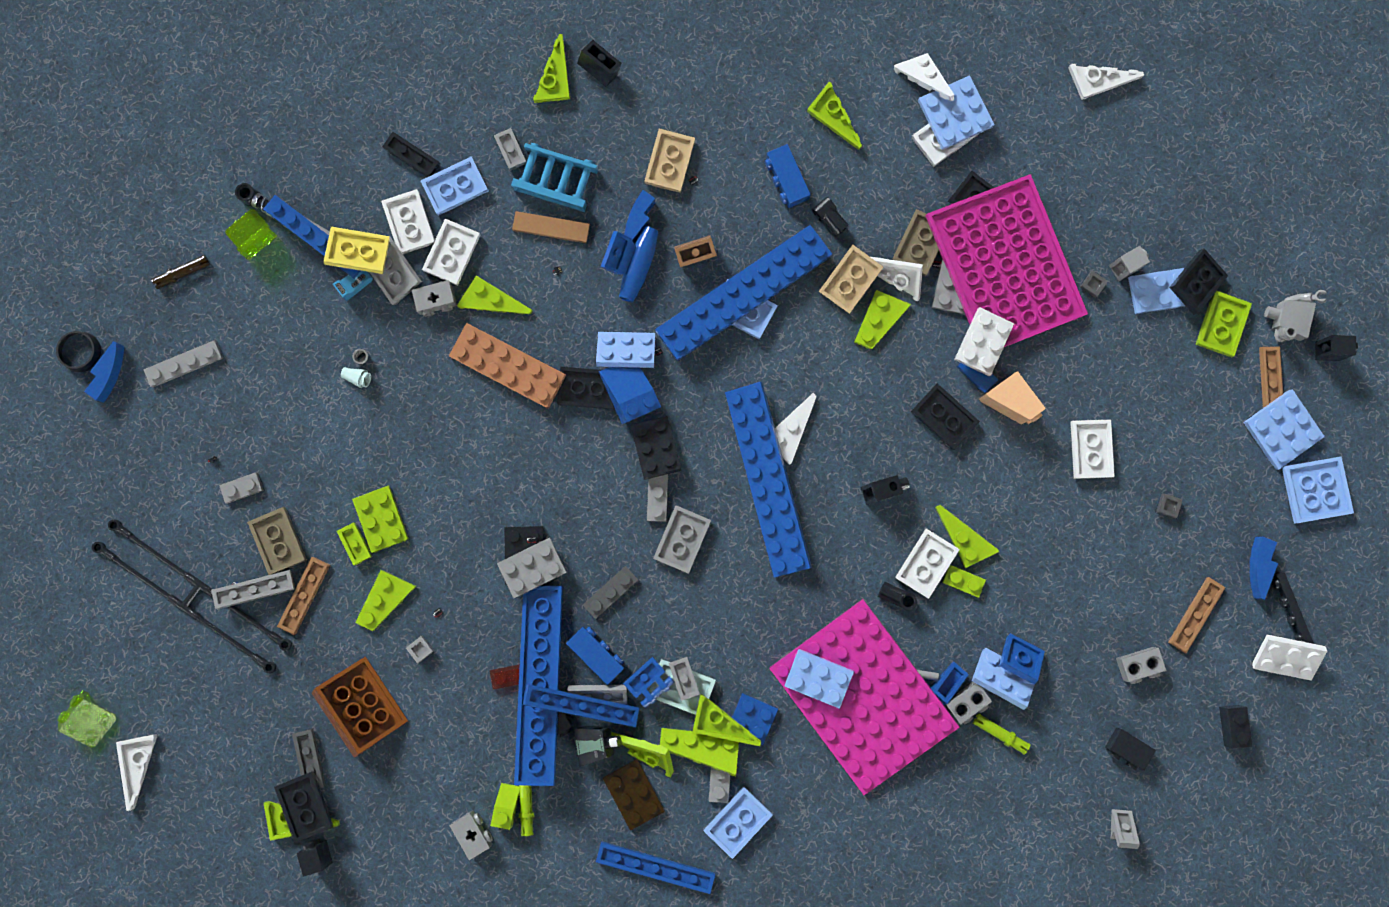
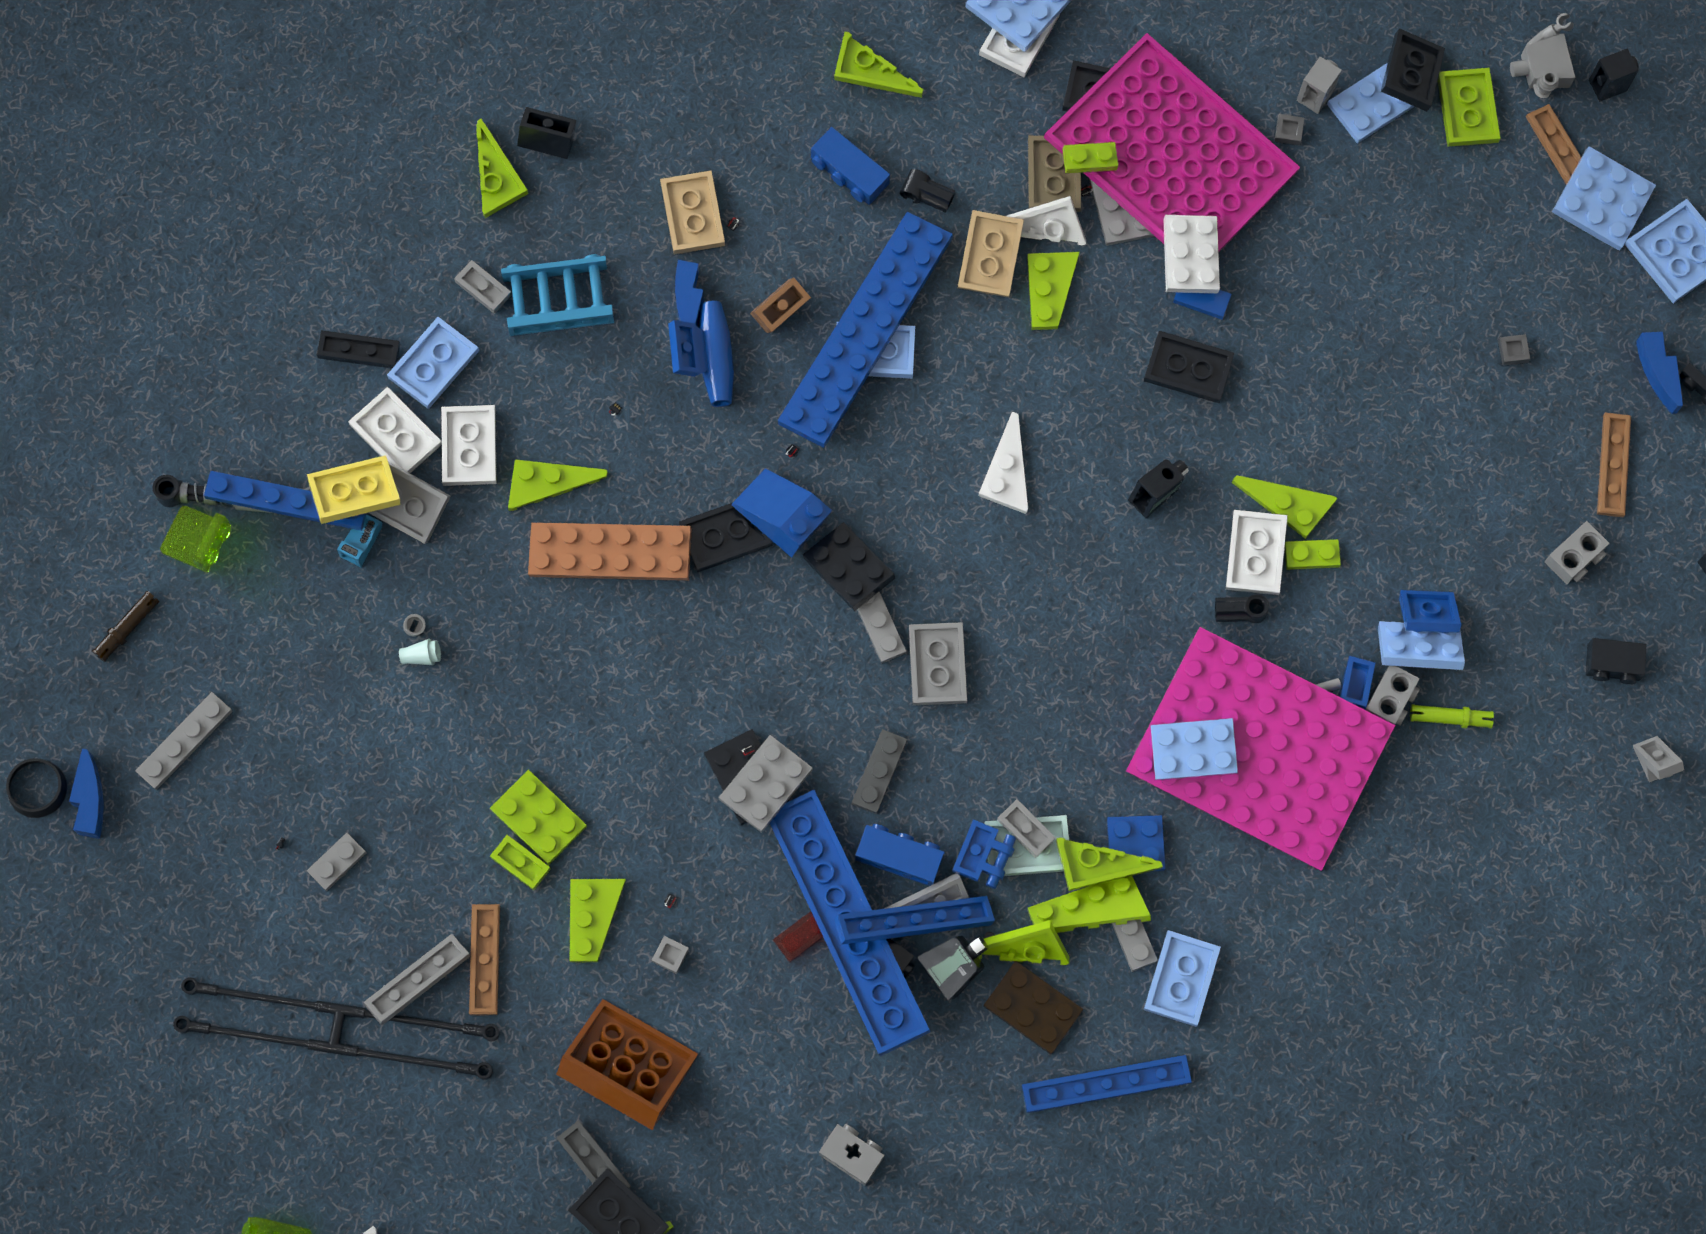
camera: 30 degrees left, 10 degrees down
(277, 541) = (417, 905): dark tan plate -> none
(425, 295) = (482, 498): light grey brick -> none
(505, 806) = (878, 1098): lime slope -> none
(526, 810) = (904, 1087): lime pin -> none
(551, 227) = (581, 359): medium nougat tile -> none
(625, 349) = (751, 463): light blue plate -> none
(768, 479) = (1009, 541): blue plate -> none
(949, 244) = (1090, 157): none -> lime plate
(1014, 400) = (1263, 307): light nougat slope -> none
(1092, 449) = (1387, 324): white plate -> none

